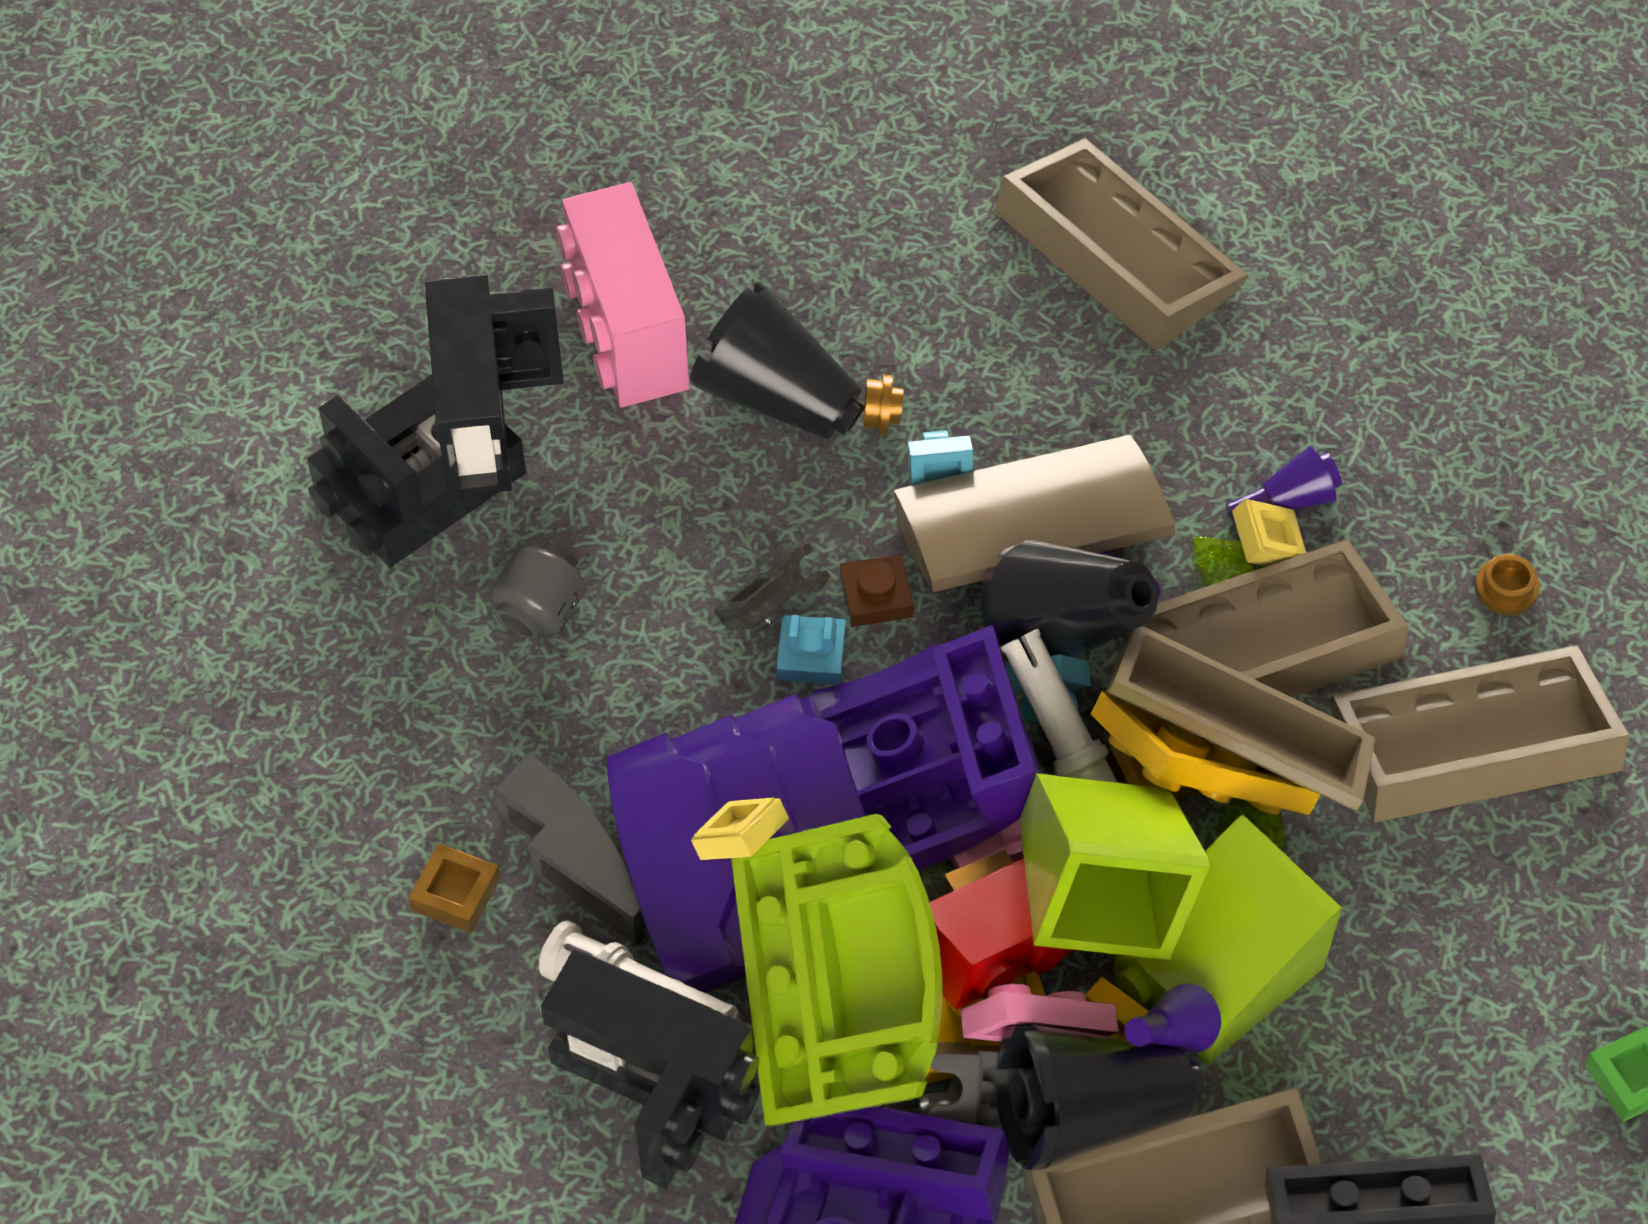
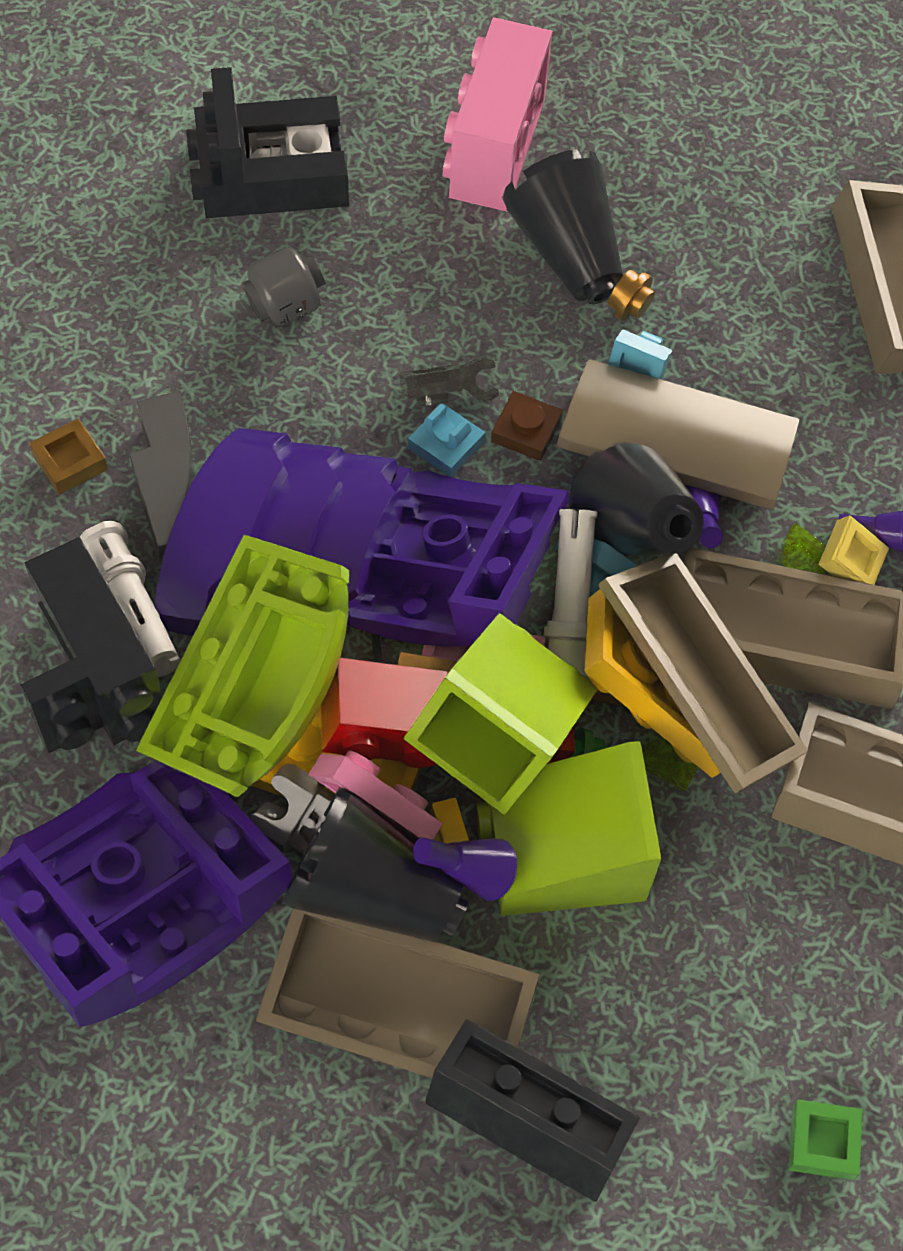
camera: 30 degrees right, 5 degrees up
(476, 352) = (330, 100): black brick -> none
(739, 828) = (259, 523): light yellow tile -> none

